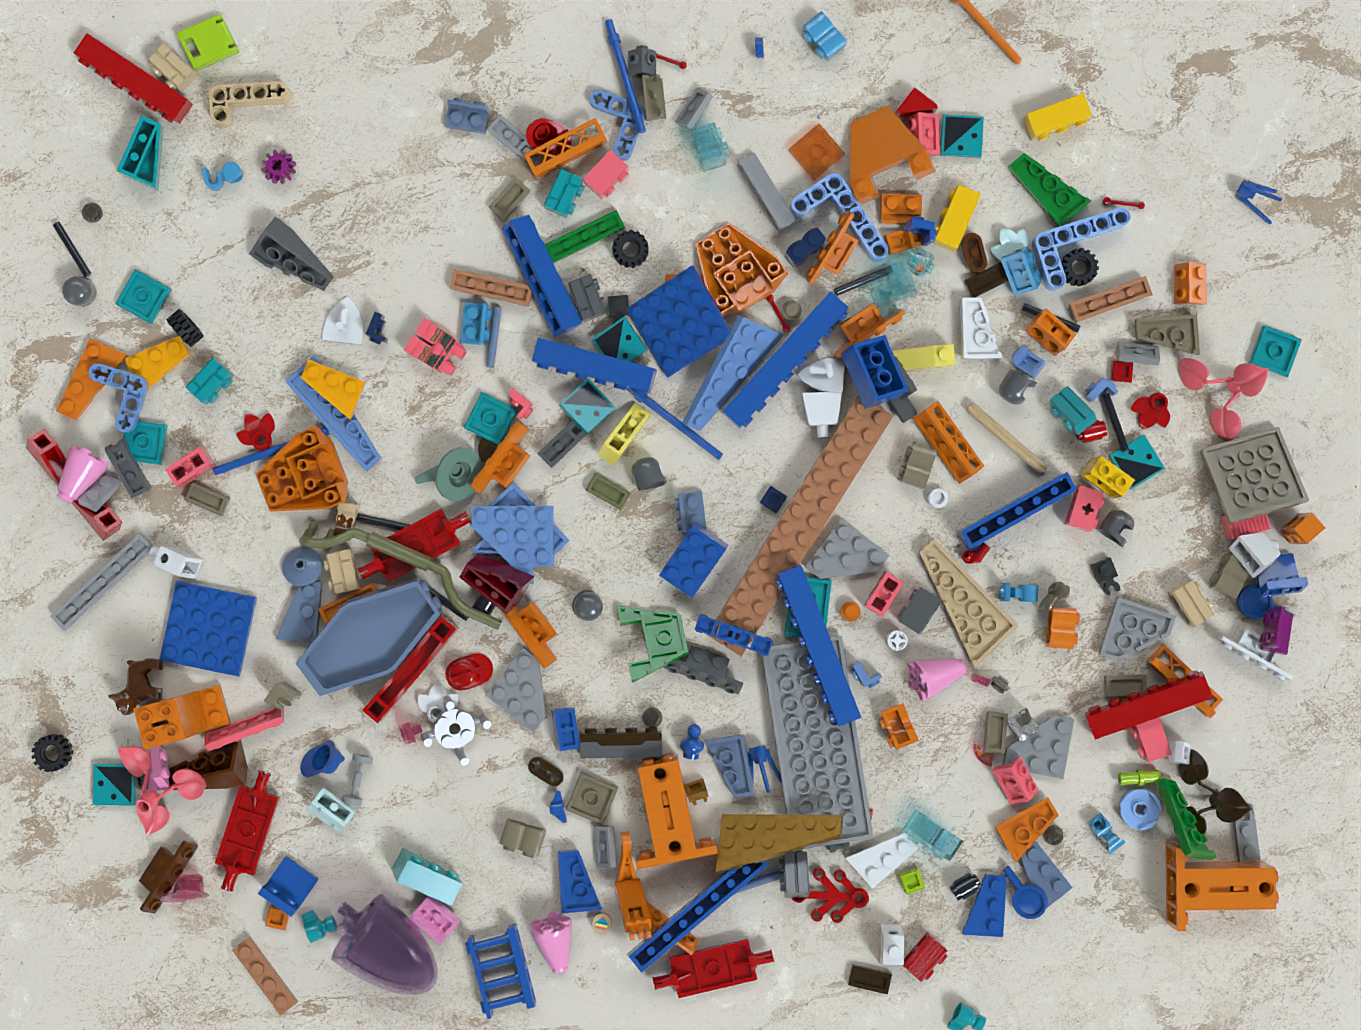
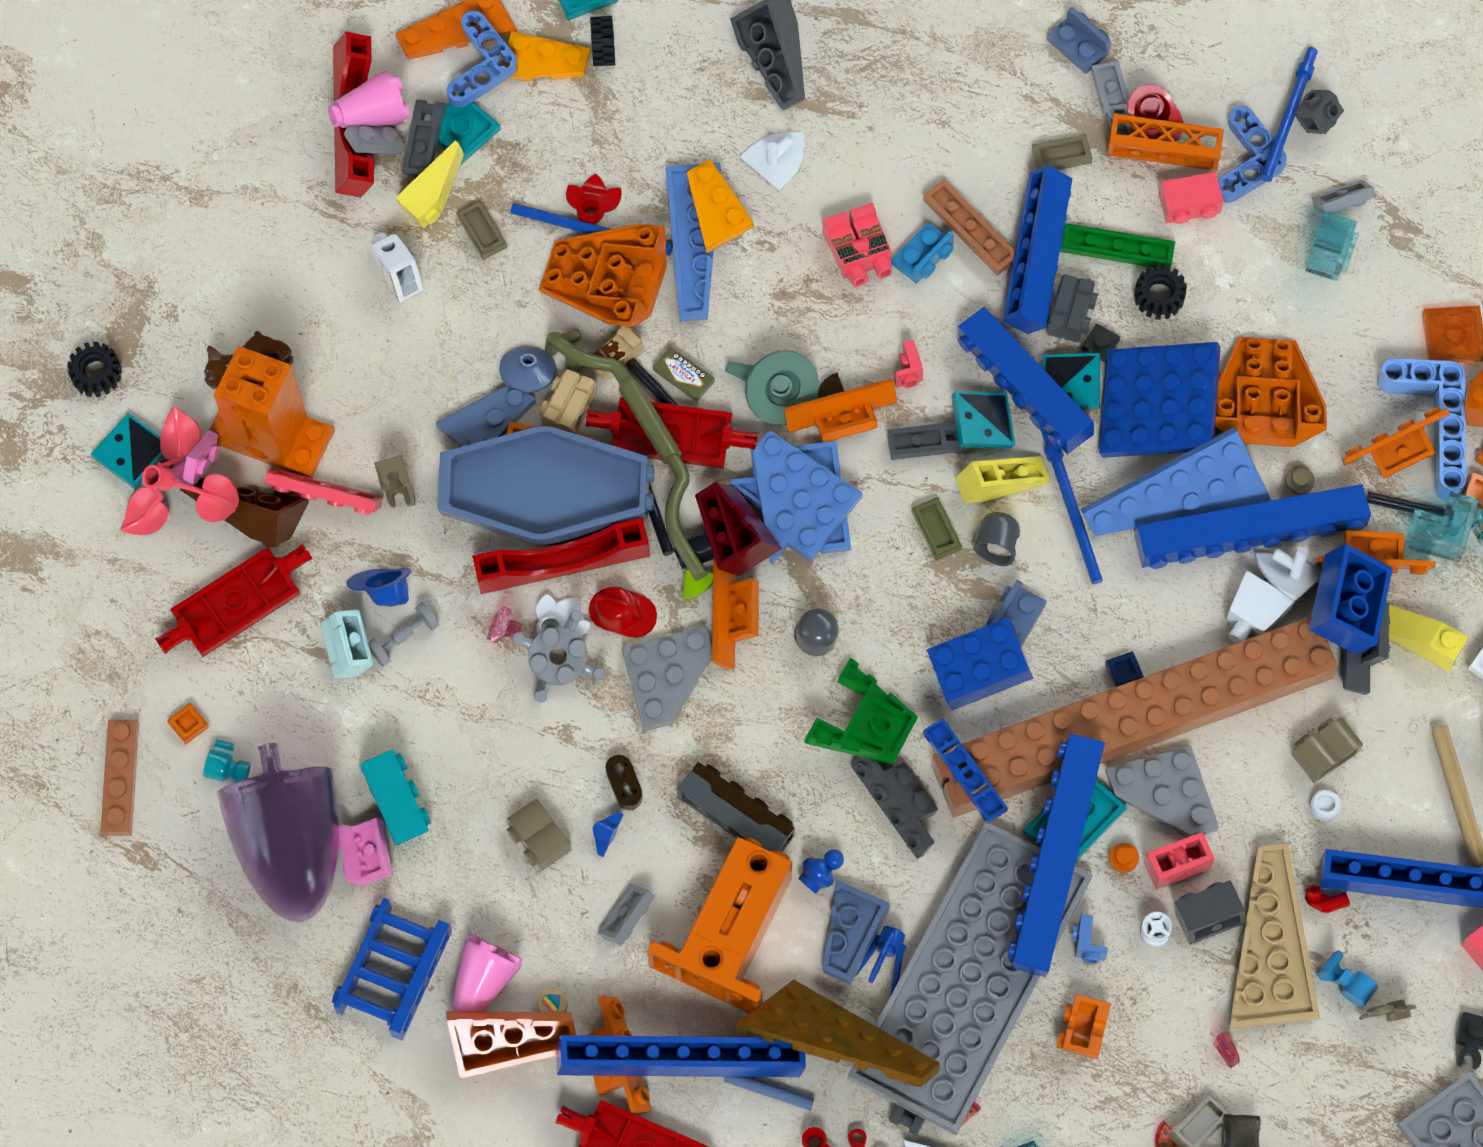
camera: 45 degrees right, 20 degrees down
(102, 582) = (297, 234): light grey plate -> none
(158, 497) = (429, 192): none -> light yellow slope
(163, 873) = (104, 583): reddish brown bracket -> none
(186, 888) = (112, 616): clear pink piece -> none
(190, 467) = (492, 181): coral brick -> none
(208, 628) = (371, 362): blue plate -> none
(210, 381) = (584, 114): teal brick -> none
(288, 886) = (231, 695): blue bracket -> none
(376, 325) = (809, 179): dark blue bracket -> none
(394, 502) = (683, 374): none -> tile
(490, 418) = (862, 359): teal tile -> none
(493, 337) = (932, 280): sand blue bar -> none
(498, 633) = (695, 588): none -> lime tile
(563, 194) = (1127, 186): teal brick -> none
(565, 729) = (685, 747): blue hinge -> none
(575, 885) = (556, 934): blue wing -> none
(592, 798) = (653, 852): dark tan tile -> none
(594, 966) = (504, 1039): none -> orange wedge
(631, 895) = (617, 980): orange hinge -> none
(652, 717) = (796, 809): clear smoke plate -> none
(653, 97) = (1305, 156): dark tan hinge -> none
(682, 65) = (1363, 146): red hinge -> none
(696, 790) = (783, 928): pearl gold tile -> none
(759, 47) = (1466, 184): blue tile -> none
(766, 192) = (1363, 337): light grey fence -> none
(786, 328) = (1284, 451): red hinge -> none
(795, 874) = (828, 1109): dark grey brick -> none
(800, 250) = (1361, 421): dark blue brick -> none
(934, 675) = (1173, 998): bright pink cone -> none
(946, 444) = (1379, 747): orange fence -> none
(1000, 684) = (1247, 1070): clear smoke plate -> none
(1062, 627) = (1373, 1057): orange brick -> none

